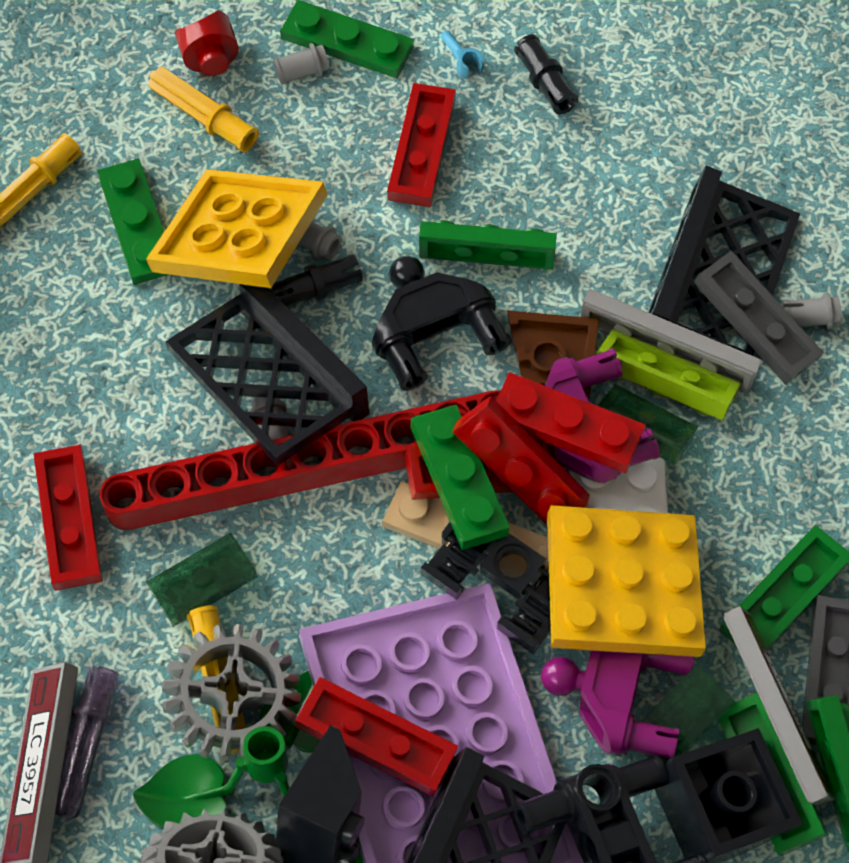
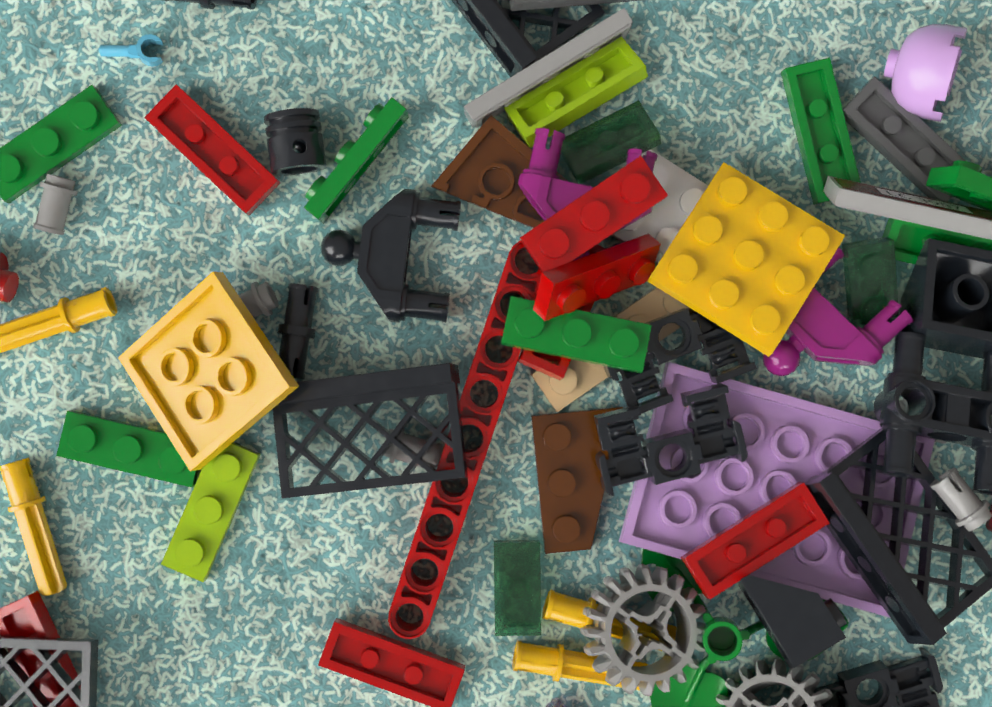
camera: 60 degrees left, 25 degrees up
(120, 305) = (210, 512): none -> lime plate
(154, 657) = (558, 663): none -> yellow axle
(337, 566) = (568, 478): none -> reddish brown wing
(377, 589) = (709, 442): none -> black piece
(473, 190) = (295, 131): none -> black piece

